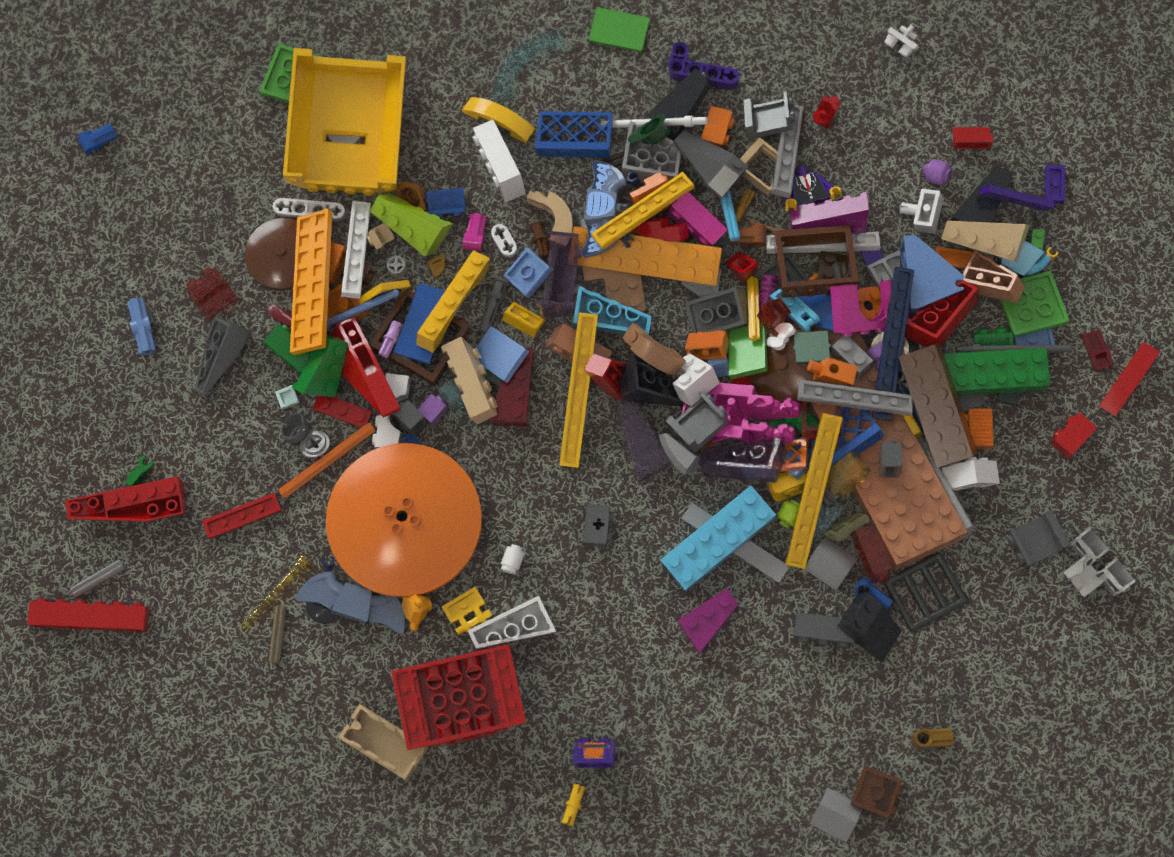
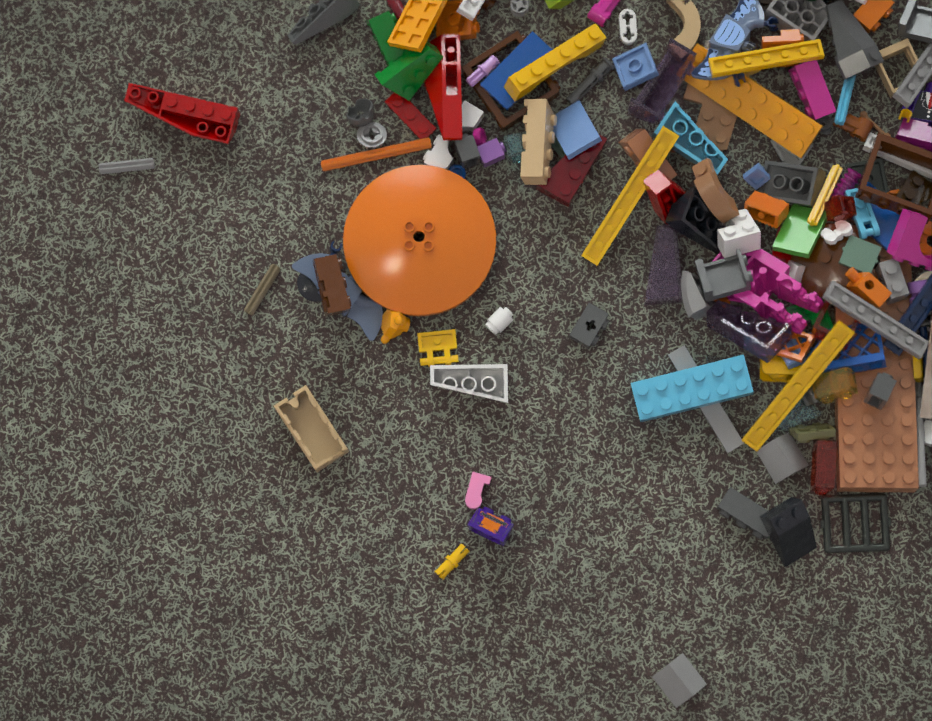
camera: 25 degrees right, 5 degrees up
(88, 616) = (105, 196): red brick -> none
(136, 476) = (201, 90): green plate -> none
(242, 516) = (278, 169): red plate -> none
(287, 397) = (366, 80): light aqua tile -> none
(300, 564) = (311, 237): clear yellow piece -> none
(341, 599) = (331, 285): none -> reddish brown wedge
(361, 308) = (469, 30): medium blue piece -> none
(383, 288) = (496, 25): yellow tile -> none
(415, 399) = (479, 136): none -> dark pink tile
(437, 265) = (556, 21): pearl gold tile -> none
(458, 698) = (394, 421): red wedge -> none
(523, 319) = (611, 107): yellow slope -> none
(540, 239) = (661, 40): reddish brown axle -> none
(562, 720) = (473, 496): none -> bright pink leg
(662, 229) = (776, 83): red slope -> none
(684, 320) = (756, 176): none -> medium blue tile
(707, 619) = (647, 455): magenta wedge -> none
(720, 366) = (768, 233): light blue tile -> none
(742, 266) = (833, 151): red slope -> none
(743, 205) = (862, 94): pearl gold axle -> none
(761, 387) = (796, 270): none -> white slope
(788, 513) = (766, 395): lime head -> none
(874, 591) = (808, 501): blue piece -> none
(877, 792) = (724, 678): reddish brown plate -> none
(934, 738) = (798, 655): pearl gold piece -> none

